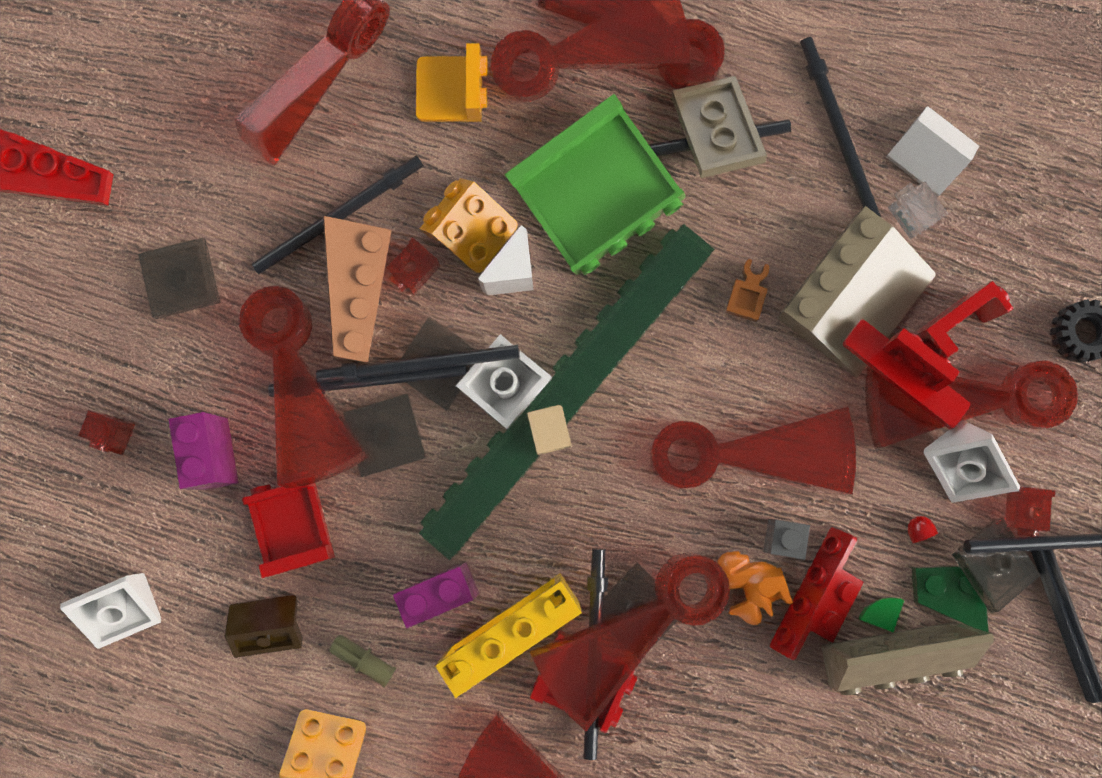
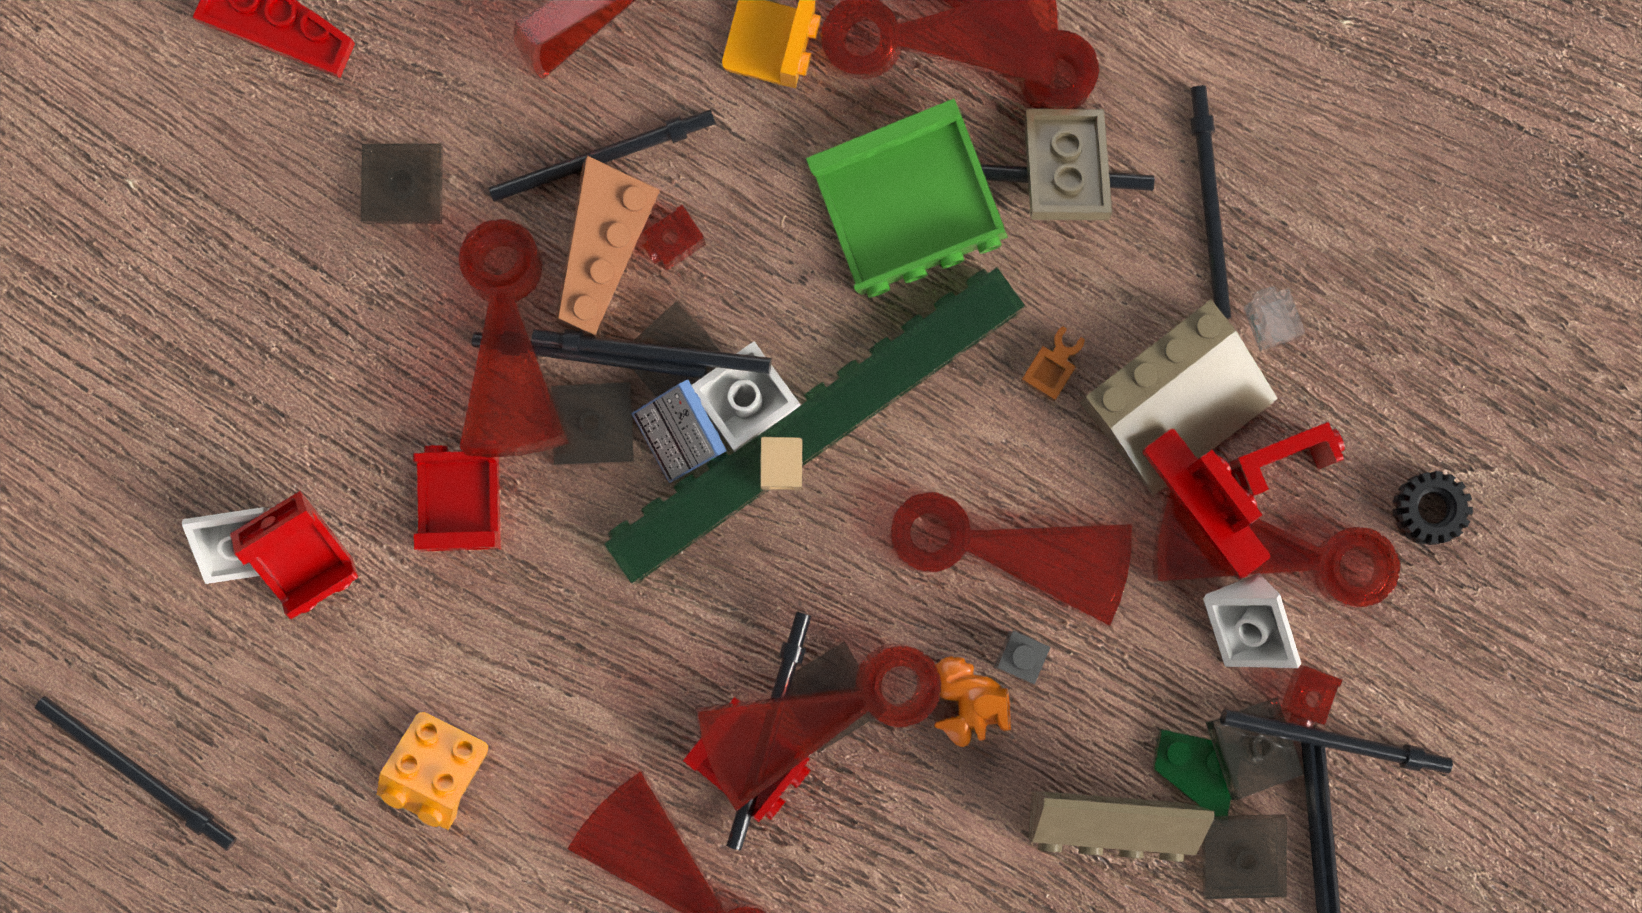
camera: 10 degrees right, 0 degrees up
(106, 432) = (276, 340): clear red brick -> none
(163, 607) = (295, 554): none -> red panel
(203, 451) = (384, 389): magenta brick -> none
(263, 626) = (400, 606): dark brown panel -> none
(362, 660) = (503, 672): olive axle -> none
(436, 595) = (607, 616): magenta brick -> none
(457, 424) = (679, 431): none -> tile
(469, 224) = (751, 205): light orange bracket -> none
(508, 635) = (676, 678): yellow window -> none
(510, 268) = (785, 268): white slope -> none
(821, 598) = (1046, 735): red bracket -> none
(883, 613) = (1111, 771): green tile -> none
(921, 528) = (1180, 686): red hinge -> none
(933, 151) = (1312, 254): white slope -> none
(1015, 658) = (1245, 857): none -> clear smoke plate

